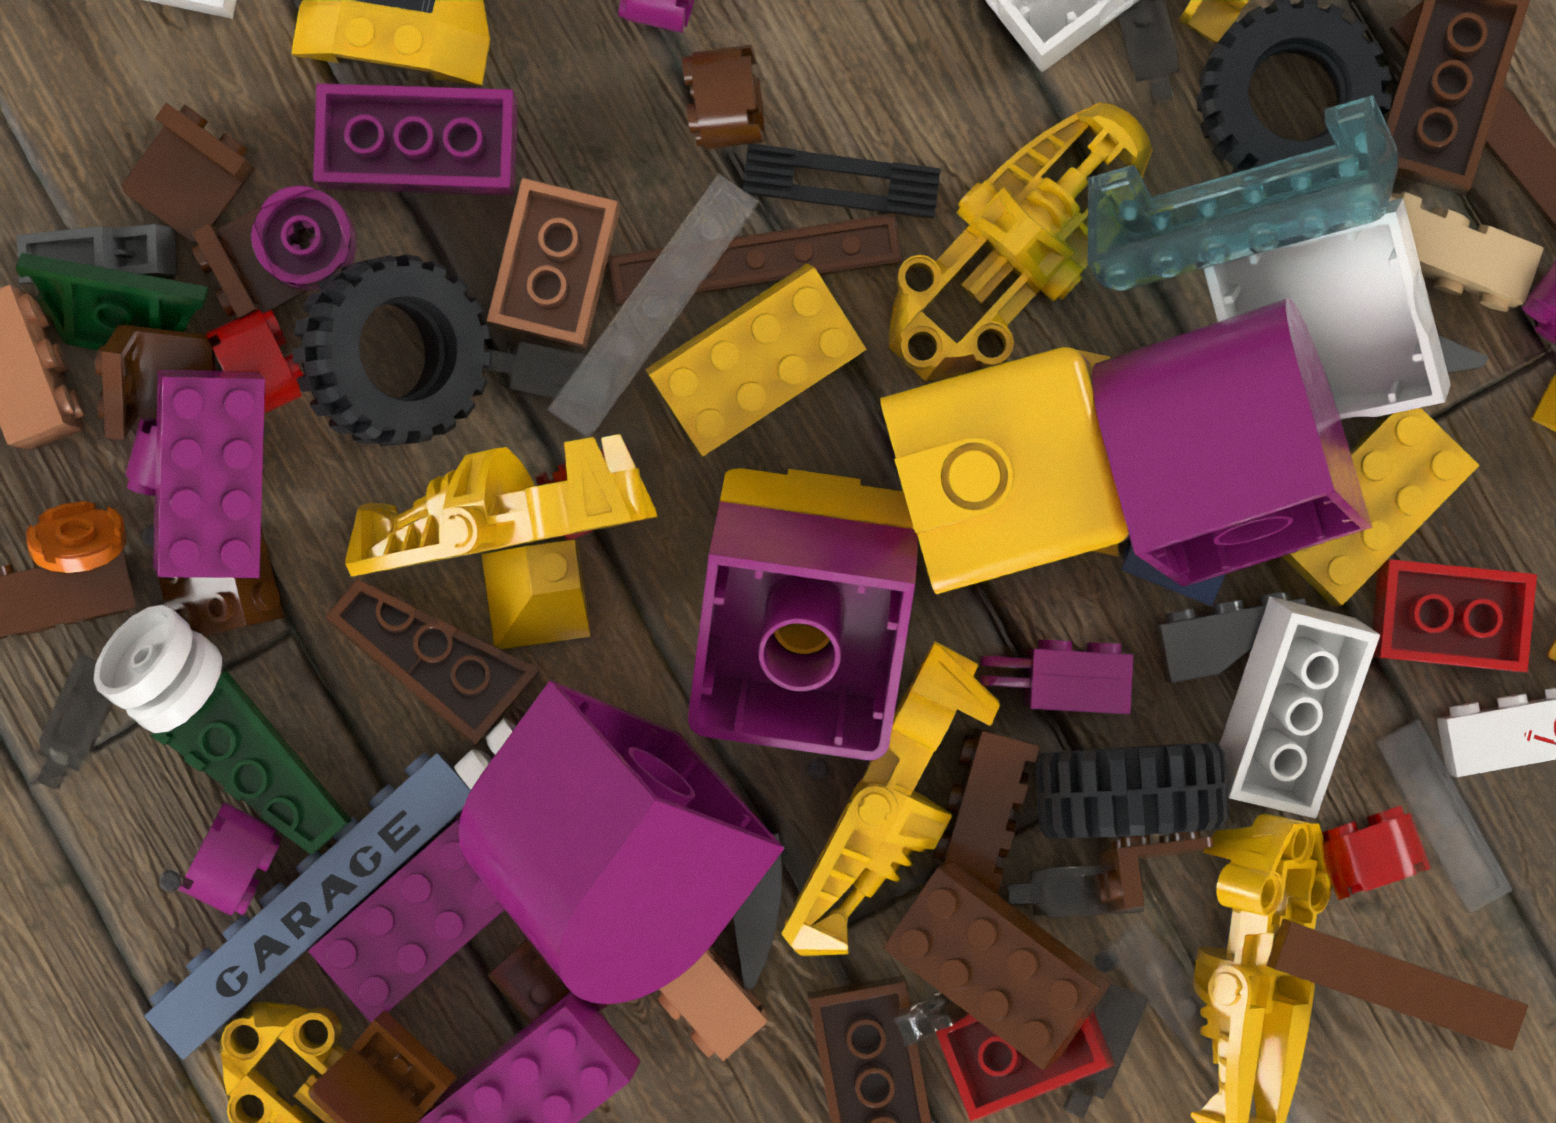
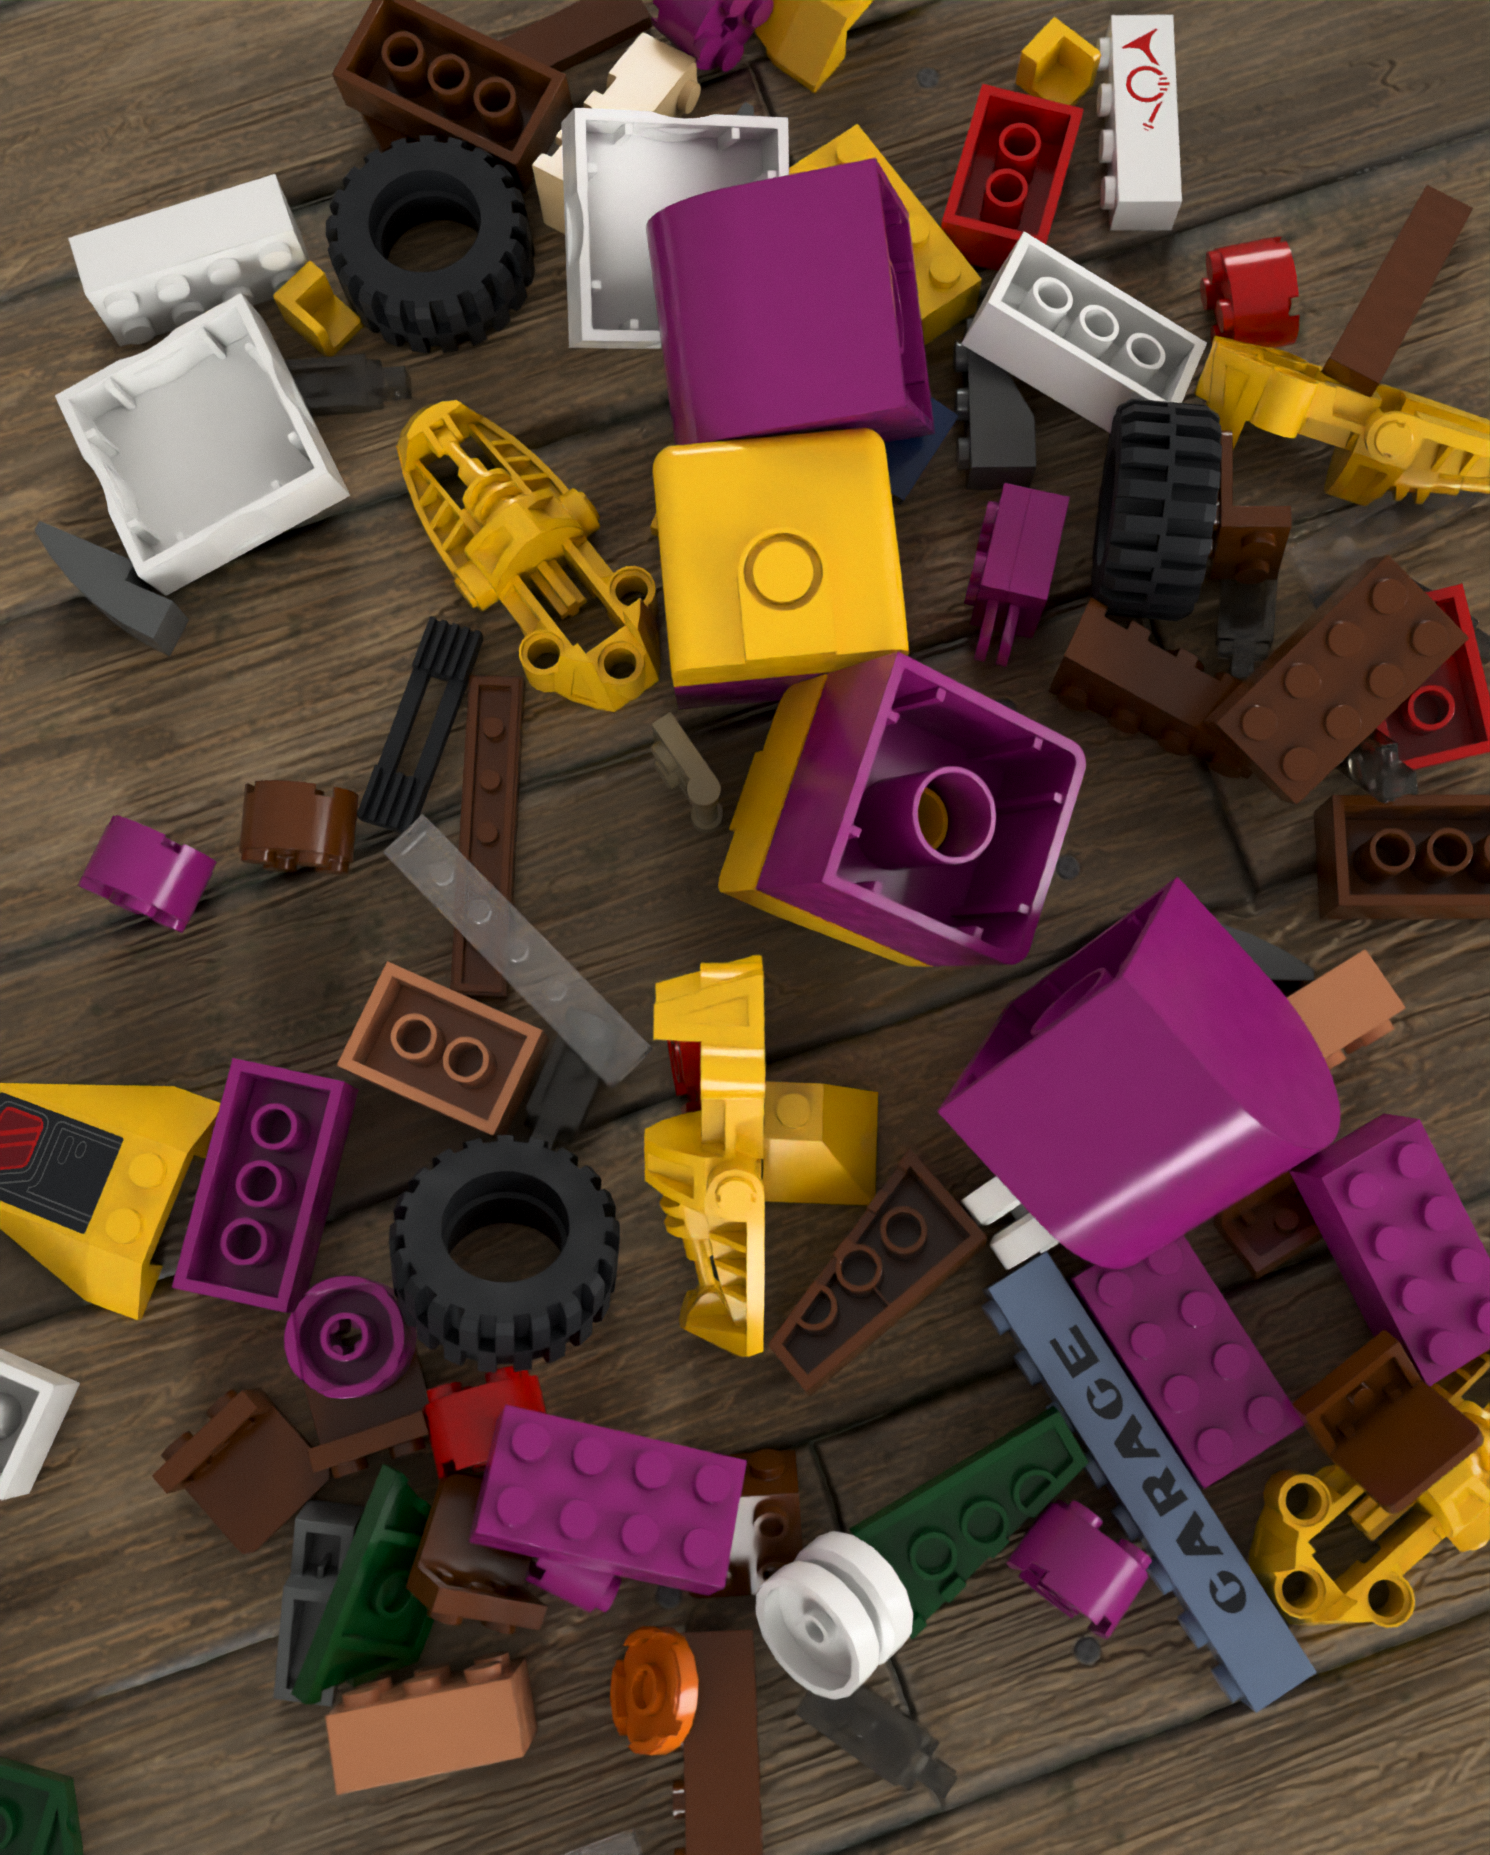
camera: 75 degrees left, 10 degrees down
(755, 359) = (599, 846): yellow brick -> none
(840, 414) = (683, 766): none -> dark tan plate
(884, 812) = (1143, 789): yellow piece -> none
(1246, 213) = (542, 246): clear light blue windscreen -> none
(1443, 816) = (1182, 245): clear tile -> none

